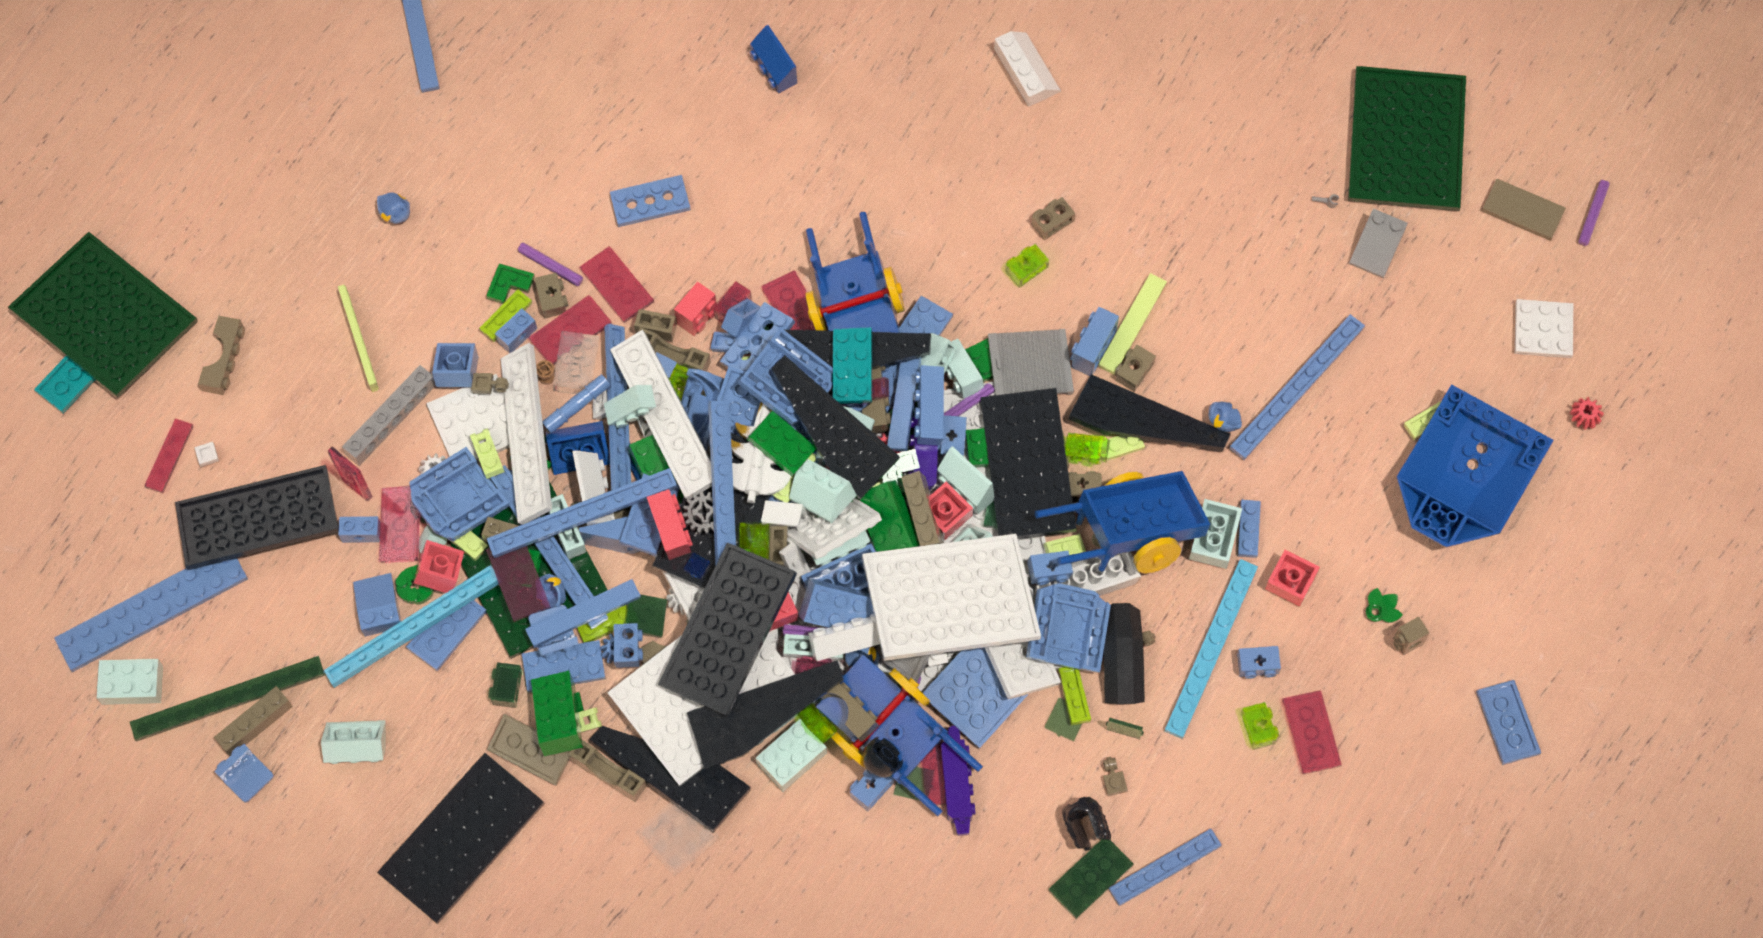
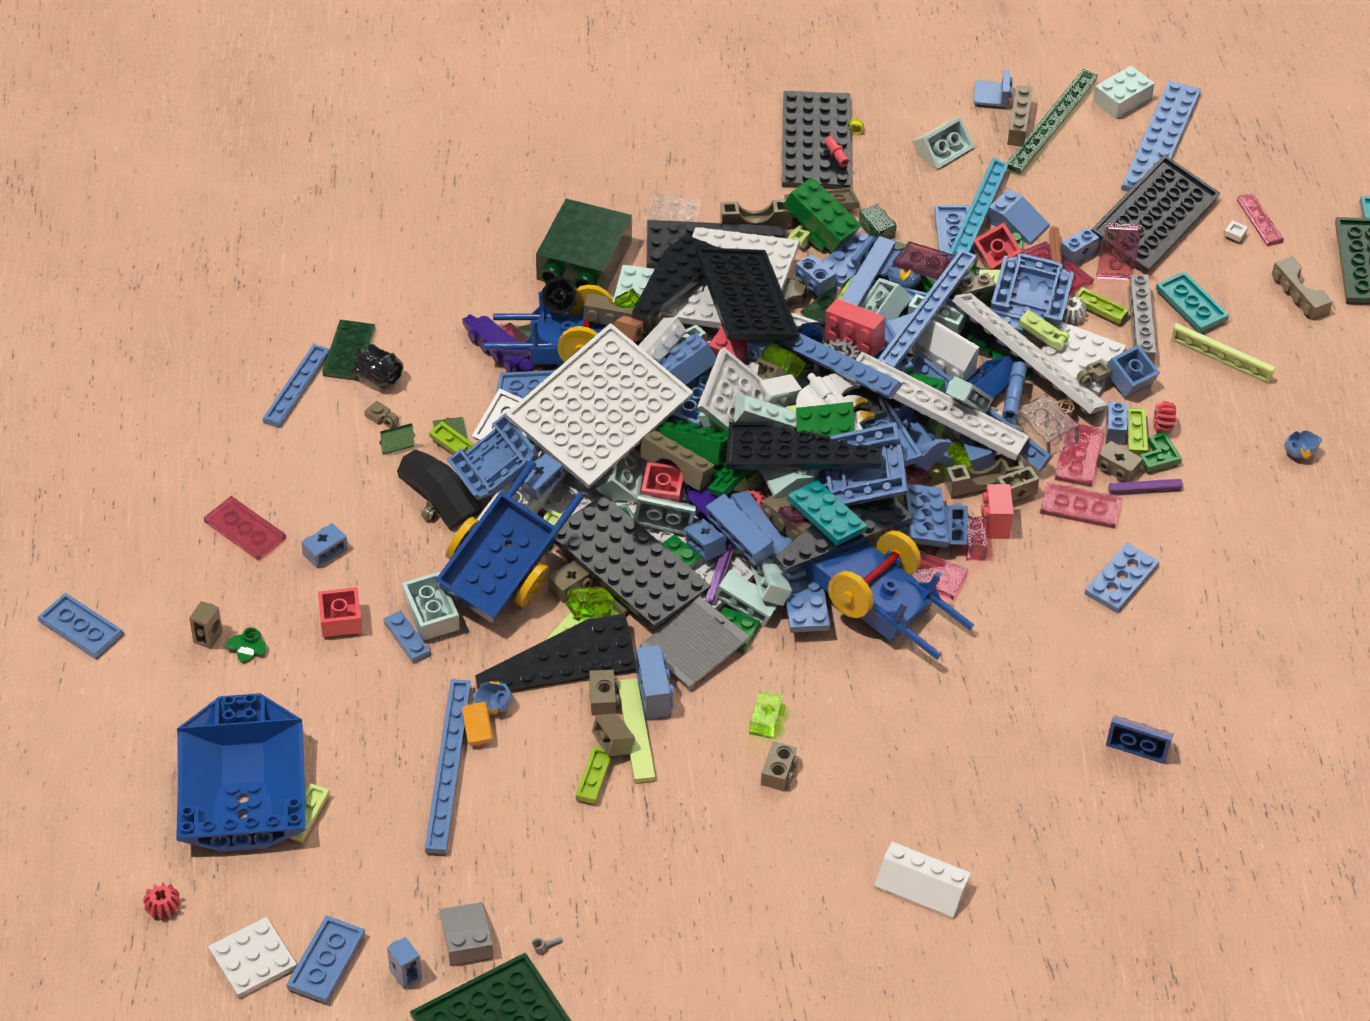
camera: 140 degrees right, 20 degrees down
(324, 408) = (1192, 301): none -> teal plate
(387, 535) = (1055, 246): none -> nougat axle
(403, 456) = (1102, 305): none -> lime plate
(411, 824) = (856, 129): none -> neon yellow plate
(466, 792) = (836, 151): none -> coral pin
(474, 306) = (1164, 416): none -> coral gear
(600, 571) = (886, 298): none -> light aqua slope
(799, 835) = (584, 244): none -> dark green brick
(855, 673) = (630, 327): none -> nougat brick
(1158, 320) = (613, 734): none -> dark tan brick
(1194, 304) = (593, 776): none -> lime plate
(1211, 649) = (372, 539): medium azure plate -> none
(1253, 402) = (477, 723): none -> light orange slope
(1257, 736) = (290, 503): clear neon green brick -> none
(1443, 239) = (404, 962): none -> medium blue brick
(1492, 289) = (326, 959): none -> medium blue plate

